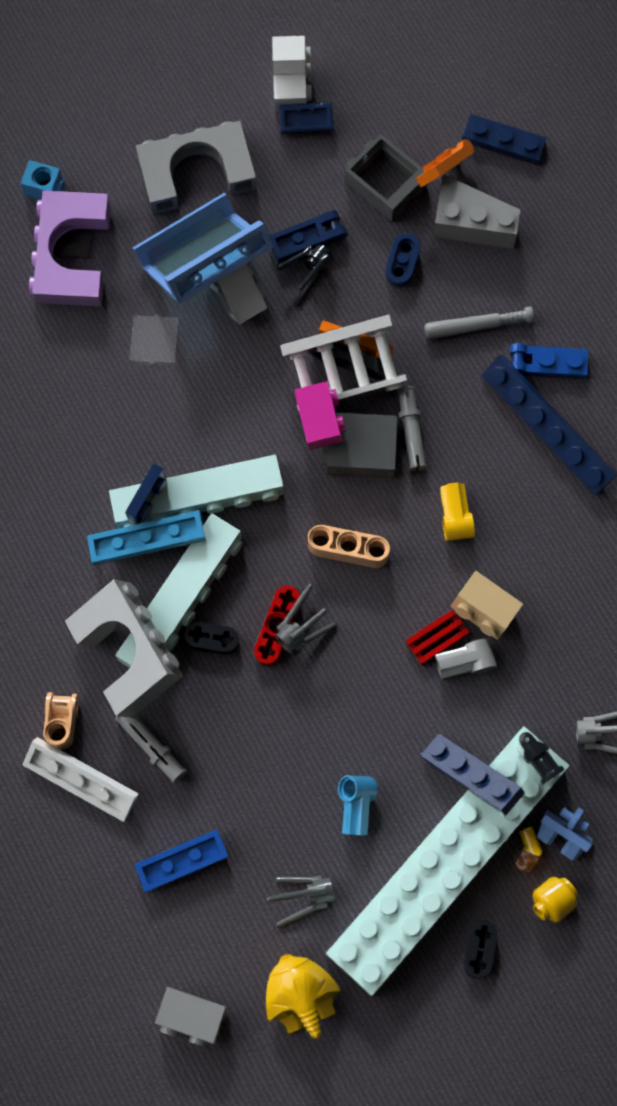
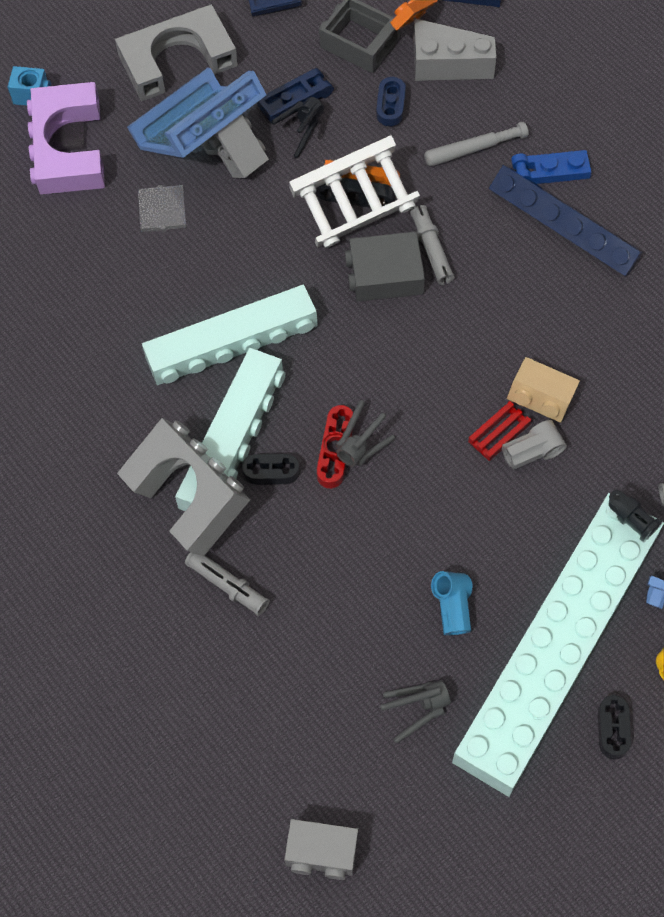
camera: 10 degrees left, 10 degrees down
(60, 714) = (128, 568): light nougat piece -> none
(80, 779) = (159, 627): white plate -> none
(141, 503) = (177, 344): dark blue plate -> none
(146, 538) = (187, 380): dark azure fence -> none
(181, 861) = (280, 691): blue plate -> none
(297, 991) = (438, 794): yellow piece -> none
(319, 416) = (340, 238): dark pink brick -> none
(338, 536) = (405, 351): light nougat beam -> none
(457, 520) = (494, 317): yellow piece -> none
(472, 774) = (568, 546): plate -> none
(531, 852) = (643, 620): arm -> none

